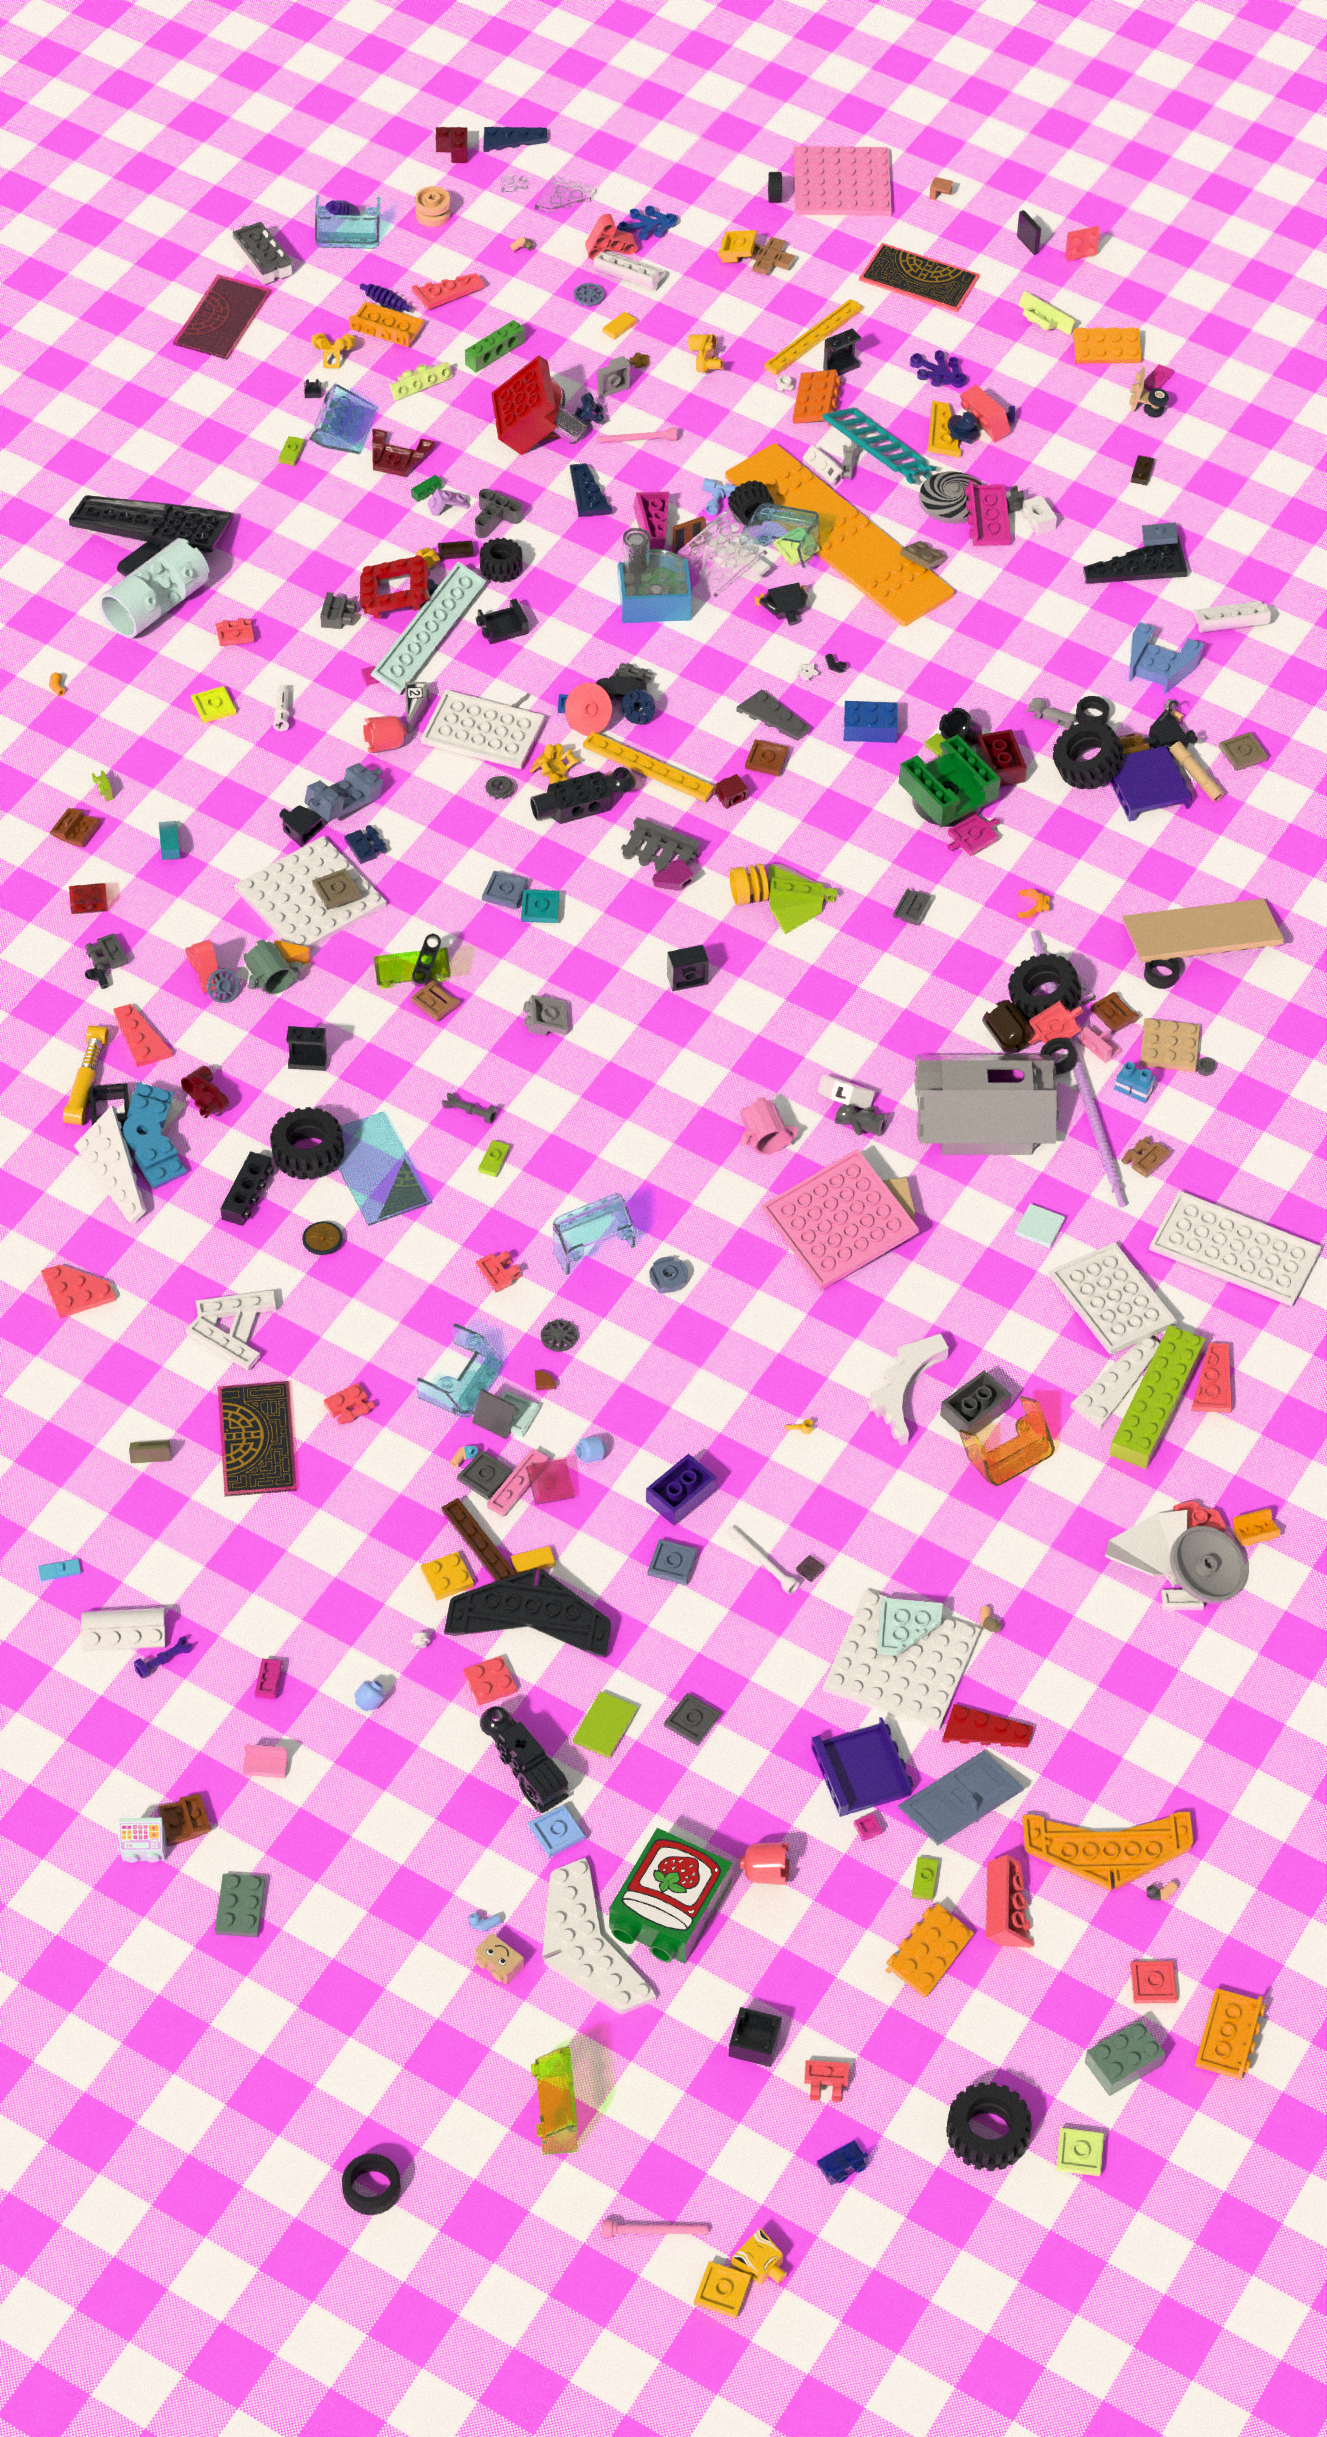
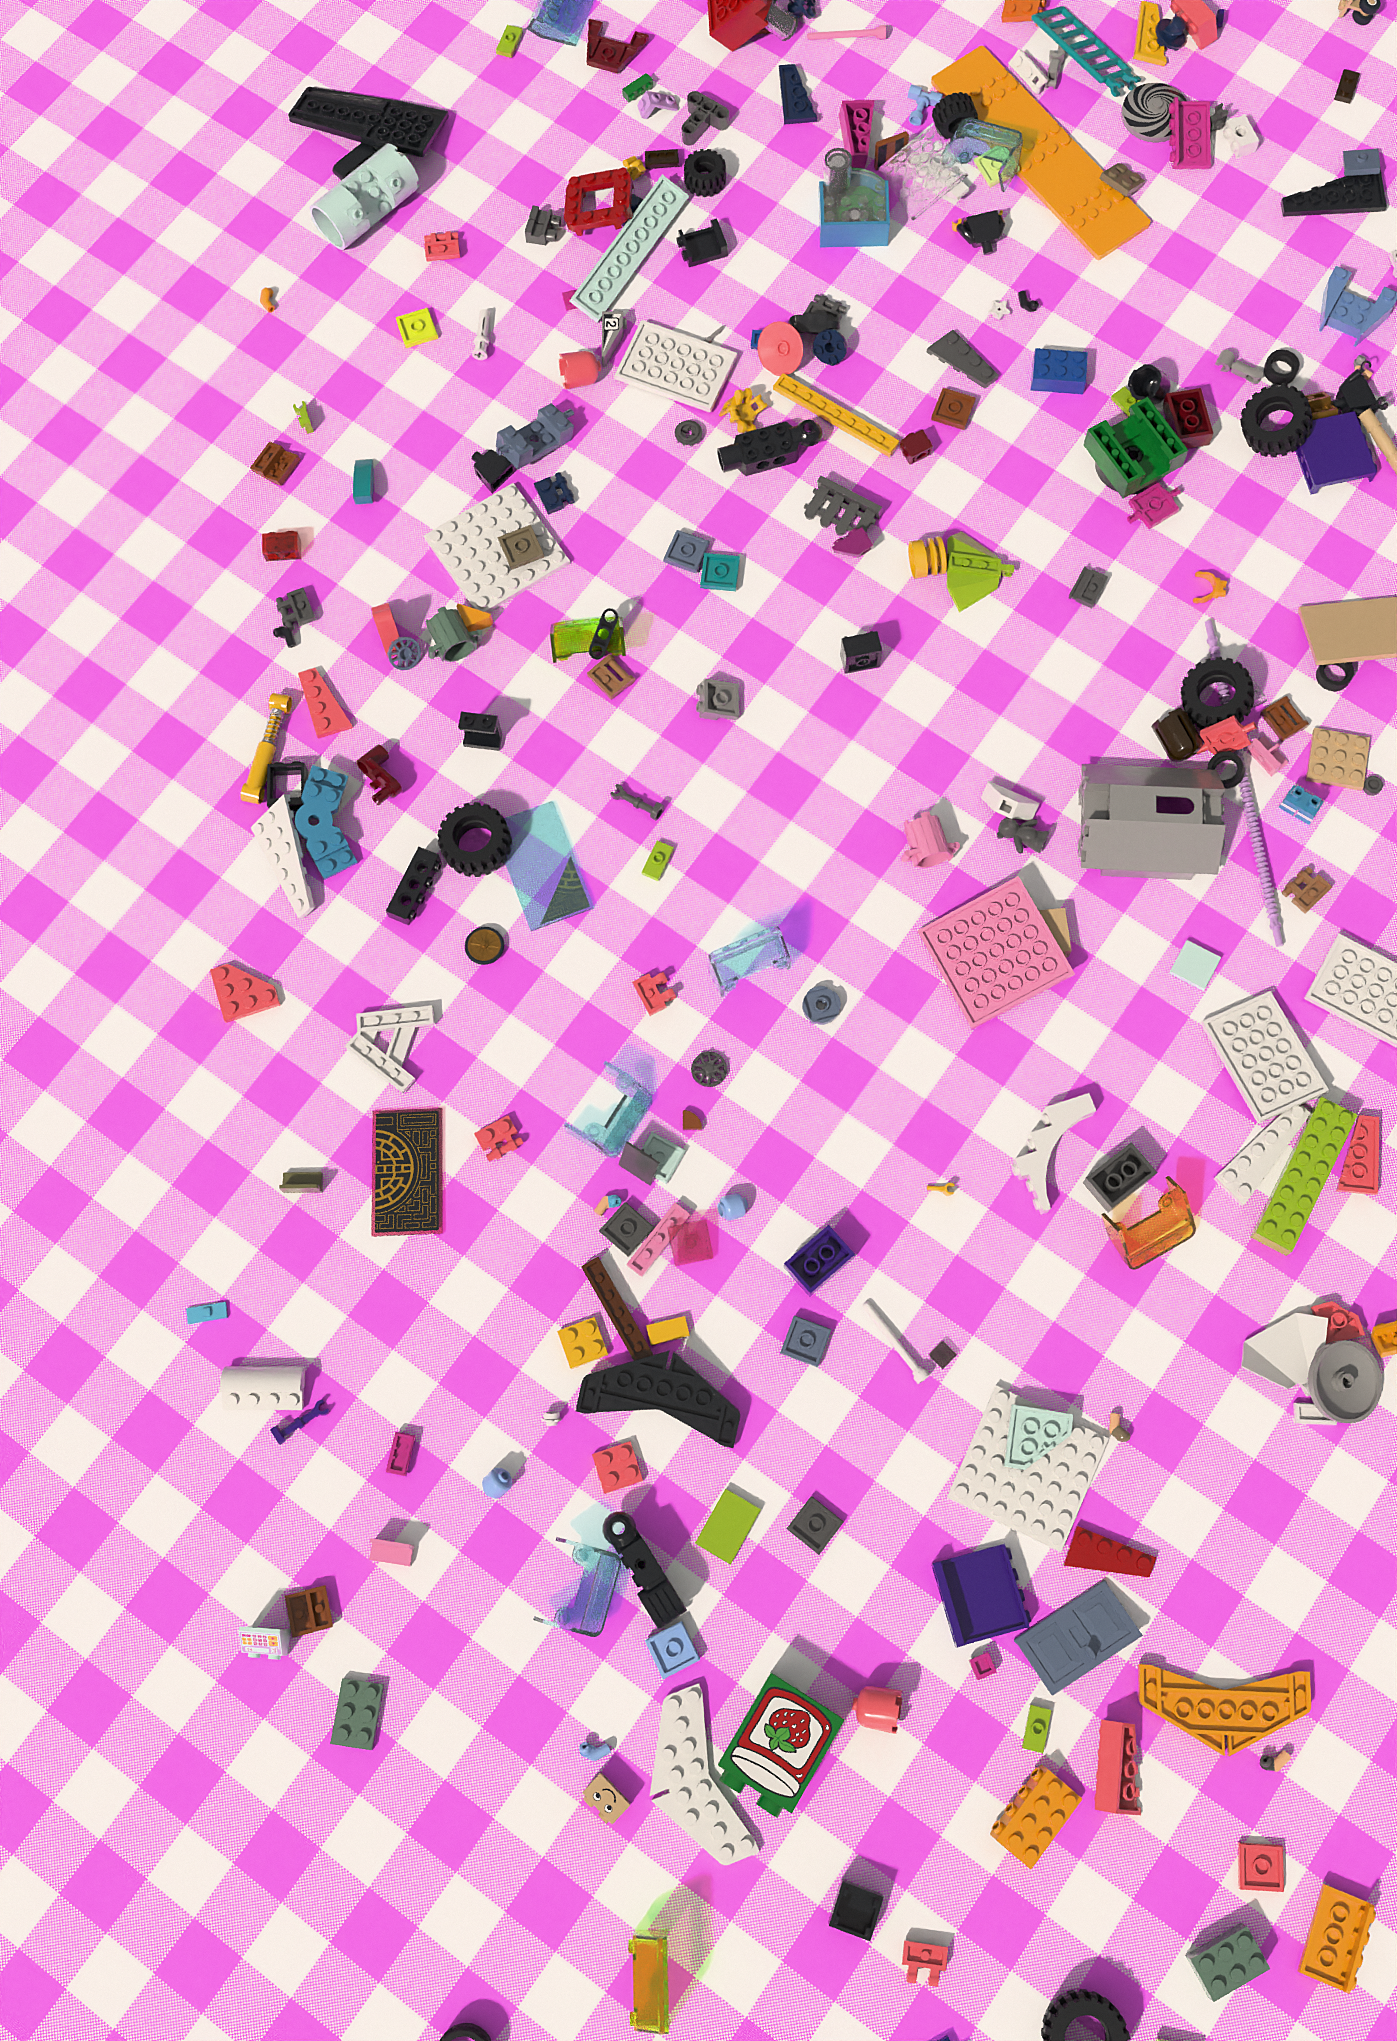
camera: 10 degrees right, 20 degrees up
(479, 1764) = (594, 1591): none -> clear light blue windscreen

